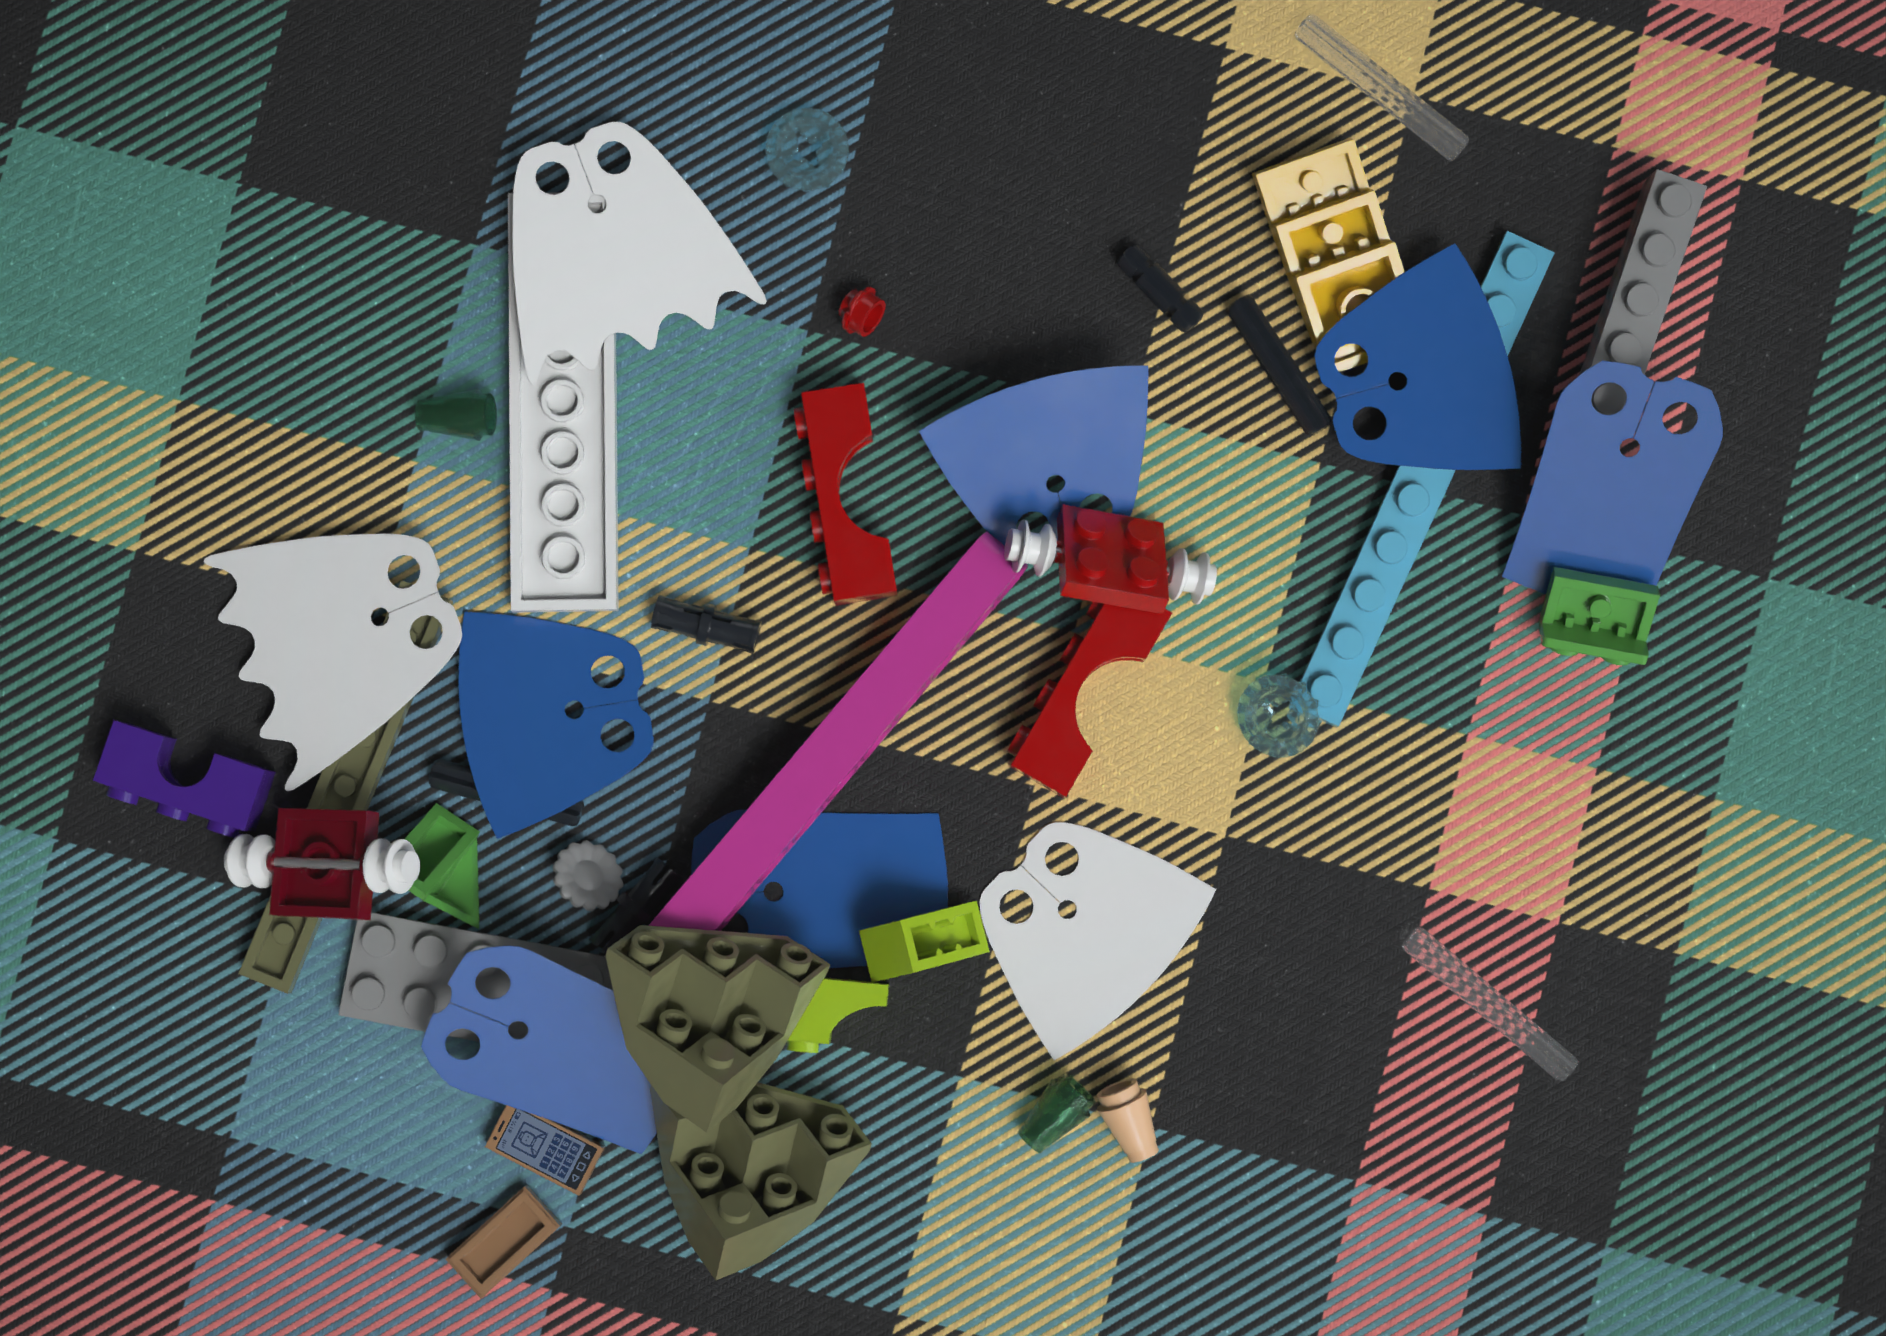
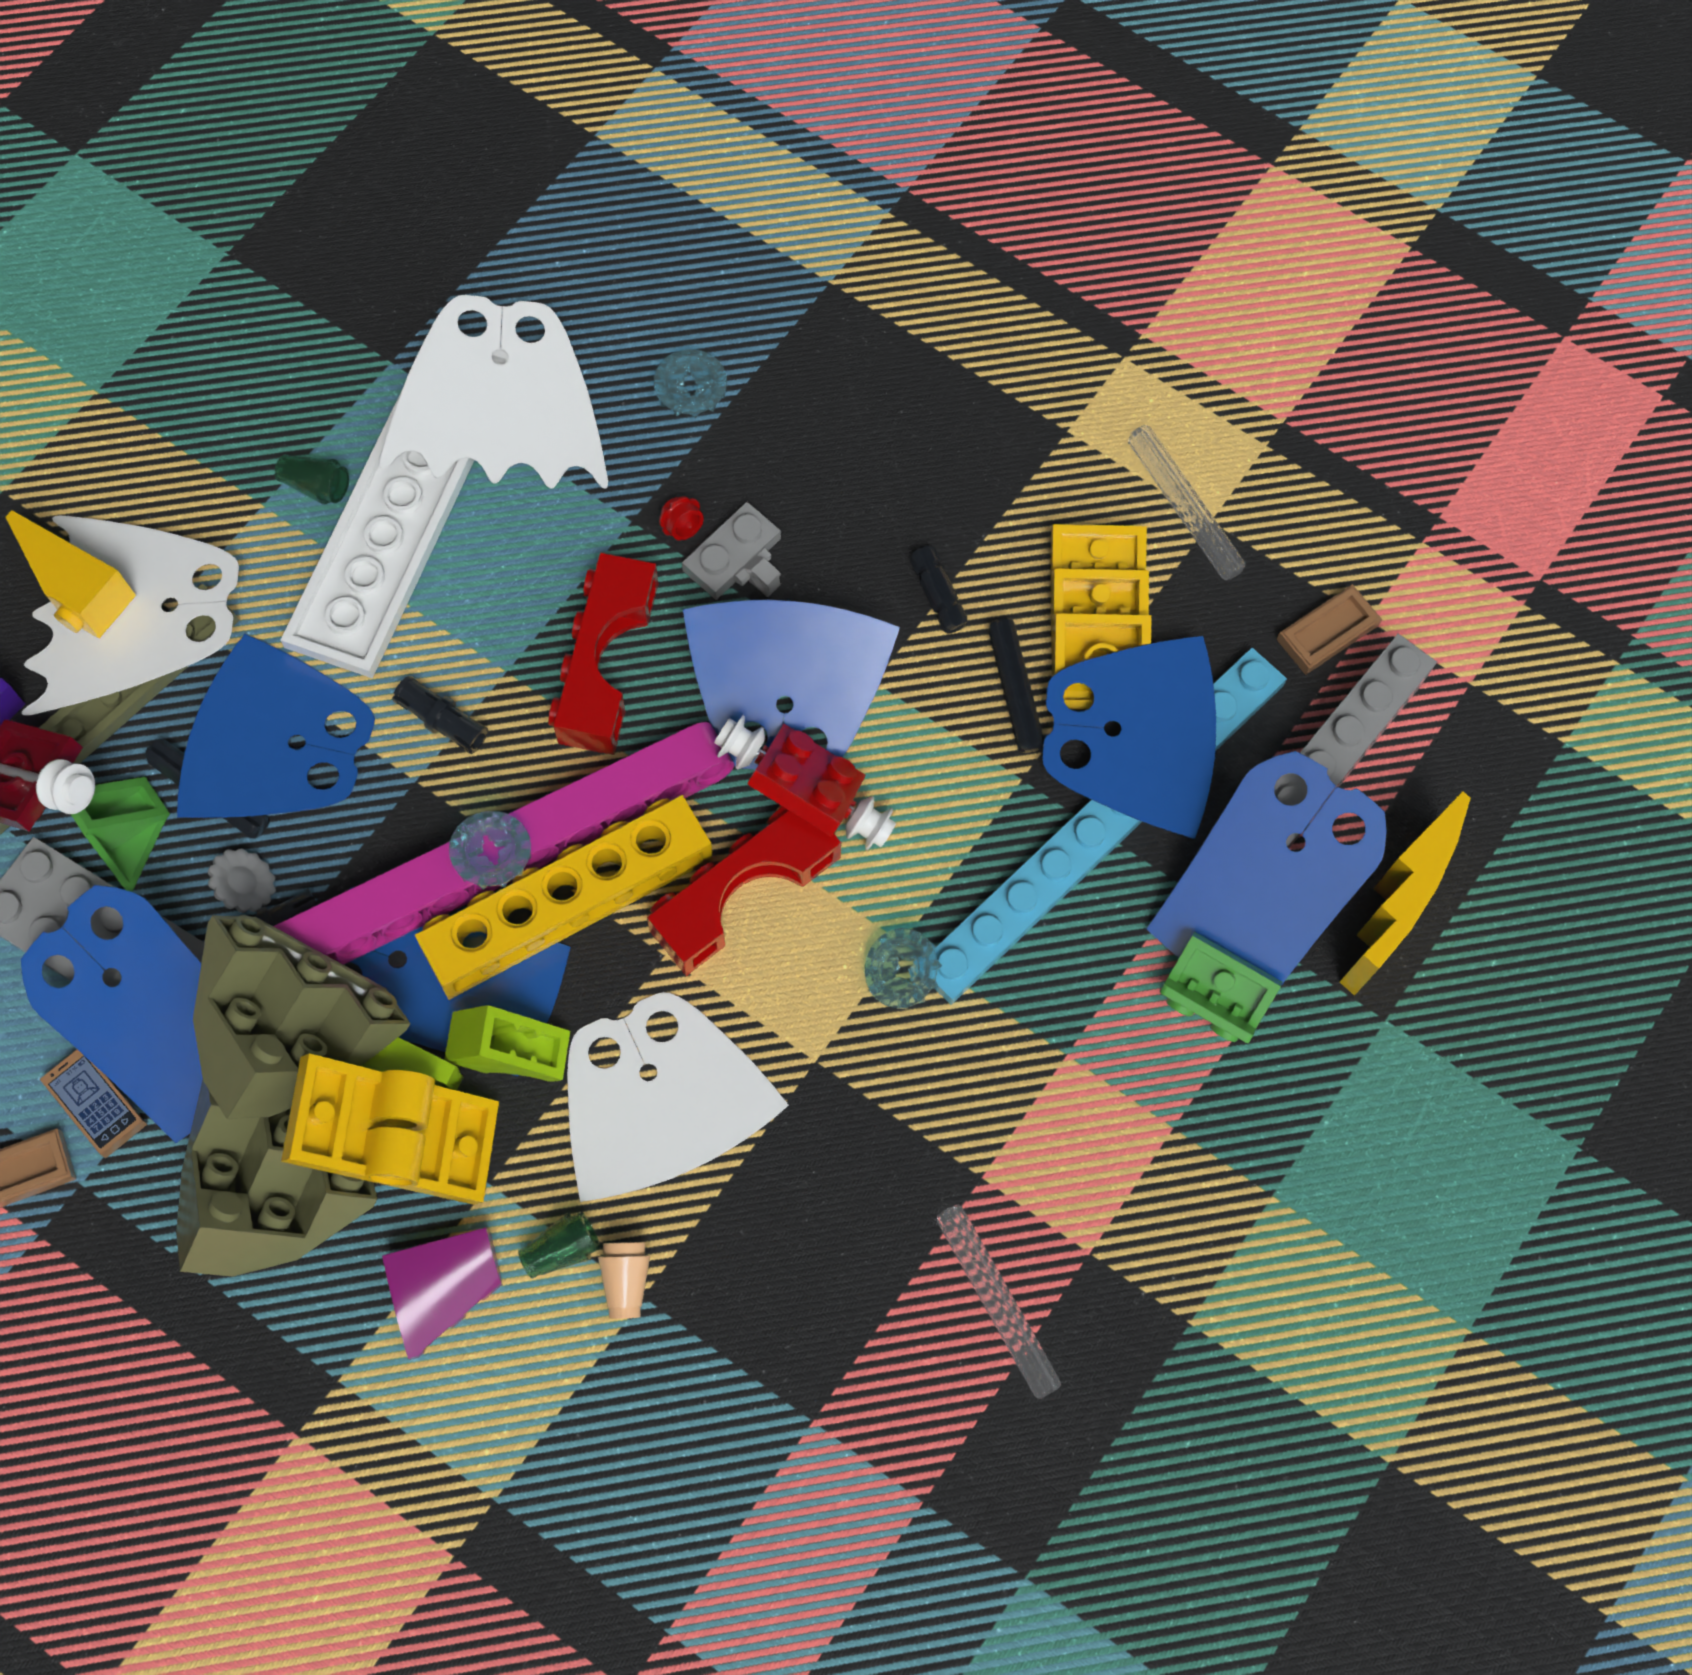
camera: 15 degrees right, 15 degrees down
(272, 634) = (79, 585): none -> yellow slope
(832, 735) = (502, 831): none -> clear light blue gear
(857, 1075) = (390, 1129): none -> yellow plate
(935, 329) = (737, 555): none -> light grey hinge
(958, 1193) = (439, 1284): none -> magenta slope
(1013, 672) = (553, 920): none -> yellow brick
(1578, 176) = (1329, 629): none -> medium nougat tile
(1757, 438) = (1407, 891): none -> yellow slope

